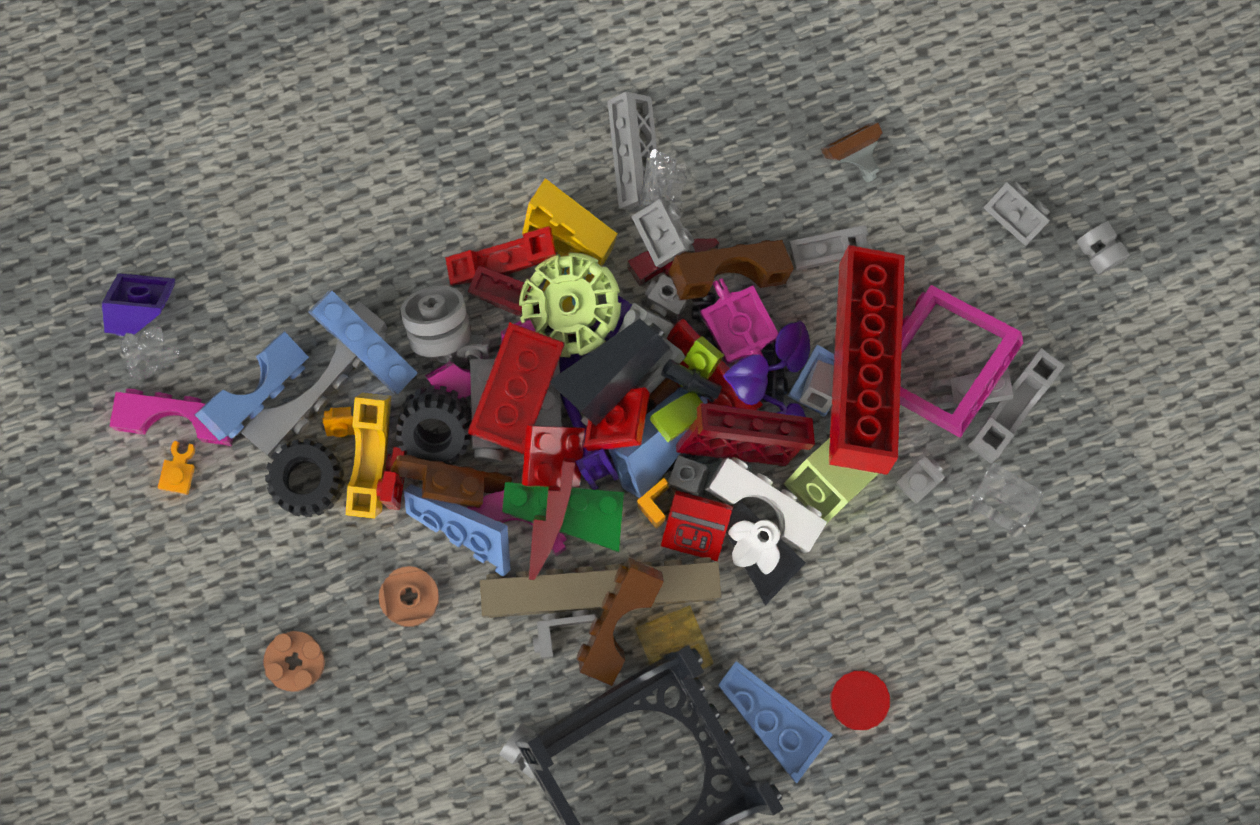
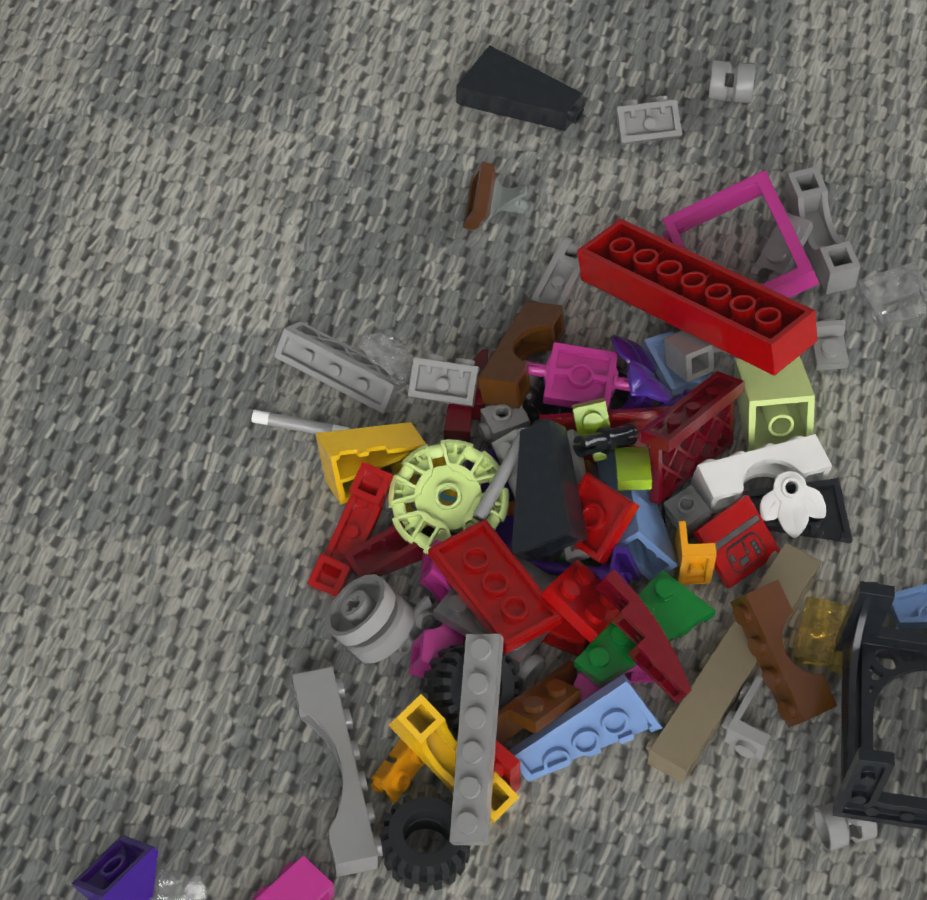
camera: 50 degrees left, 20 degrees down
(277, 363) = (308, 853): medium blue arch -> none
(363, 342) = (299, 693): medium blue arch -> none
(383, 461) = (476, 739): none -> light grey plate
(396, 585) = (608, 812): nougat plate -> none
(567, 159) = (293, 423): none -> light grey bar
(600, 330) = (498, 480): none -> light grey bar
(967, 97) = (518, 91): none -> black slope

